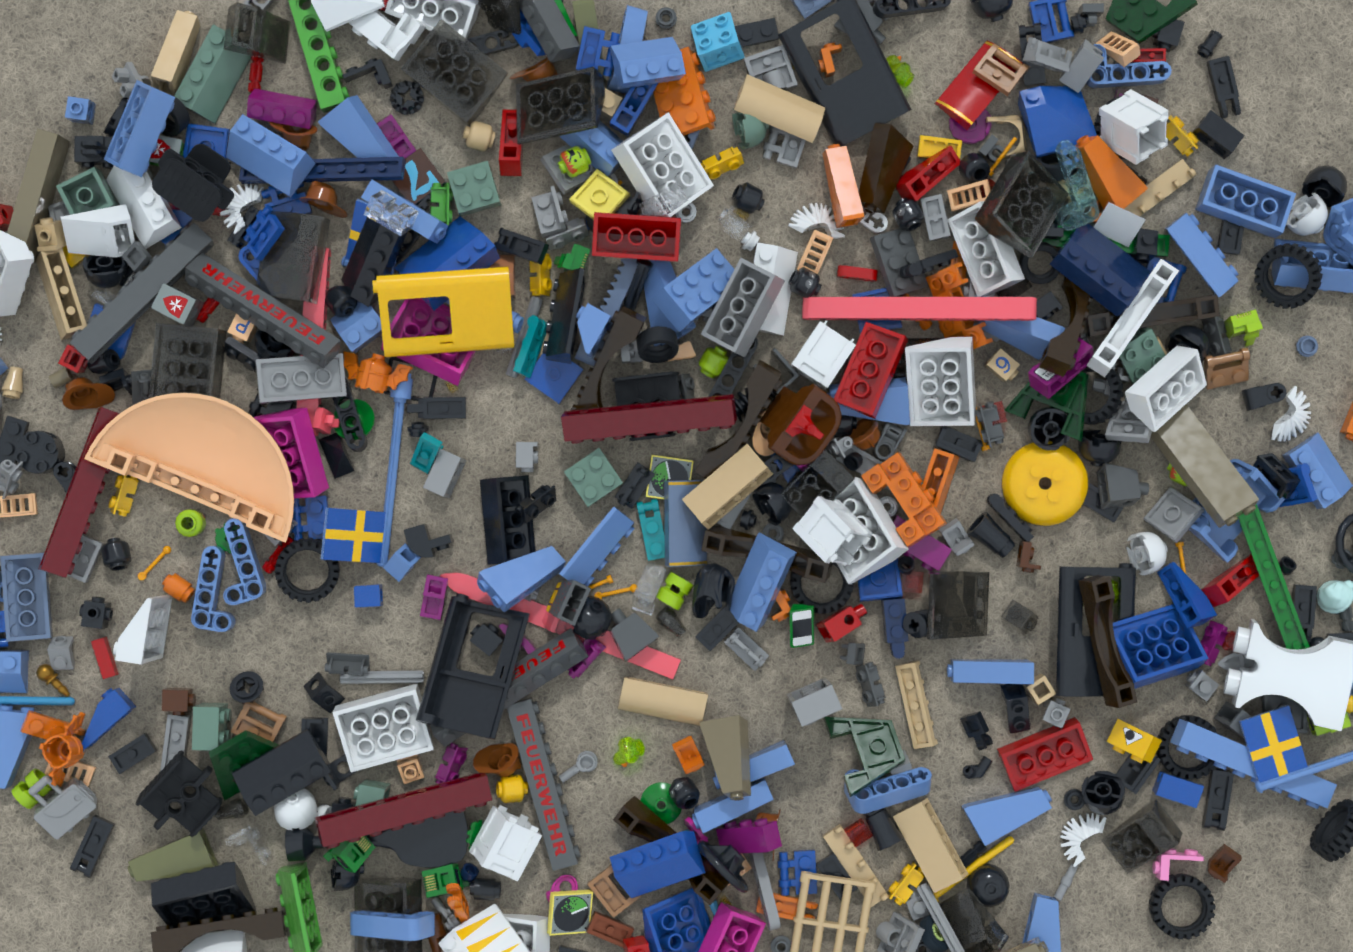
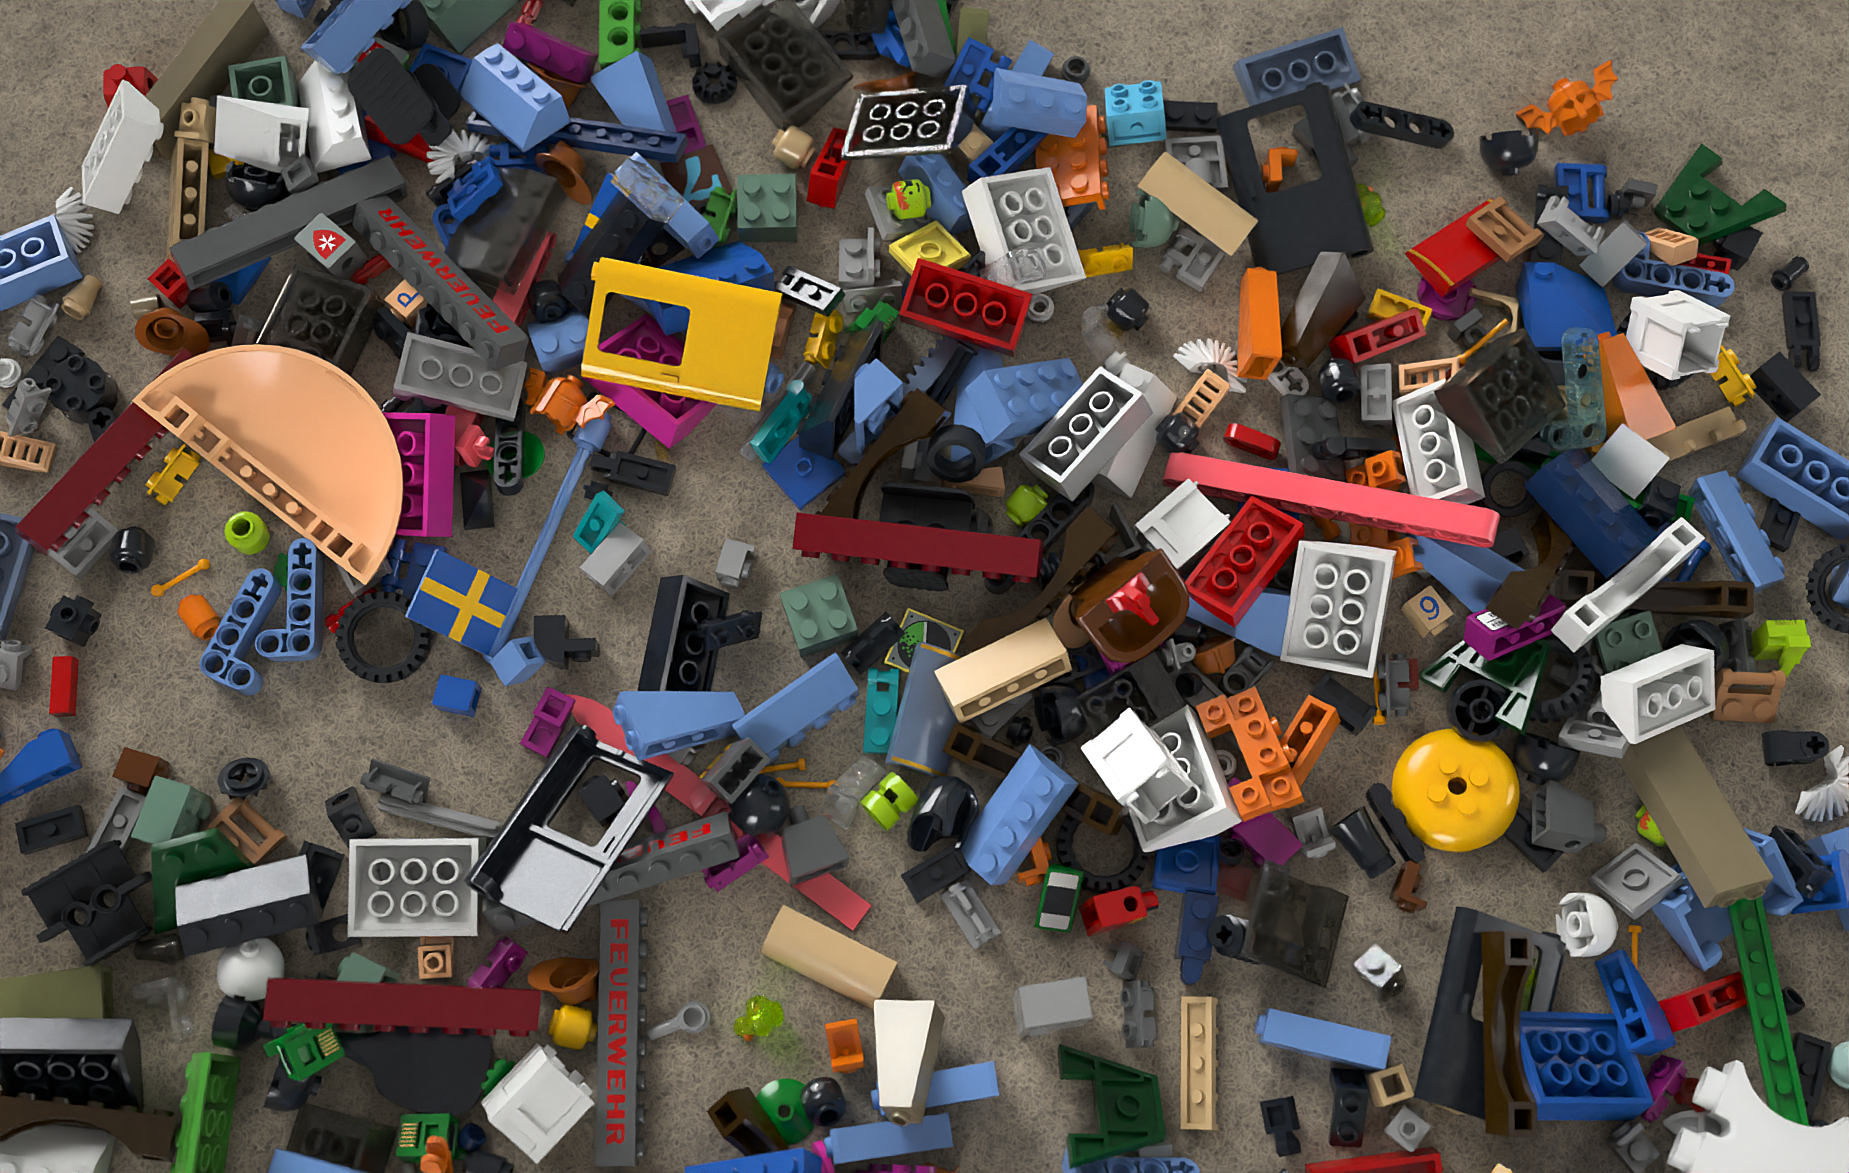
camera: 10 degrees right, 15 degrees down
(91, 151) = (286, 39): black brick -> none
(146, 633) = (129, 650): white slope -> none
(669, 620) = (872, 845): clear smoke cone -> none
(974, 168) = (1441, 343): black head -> none

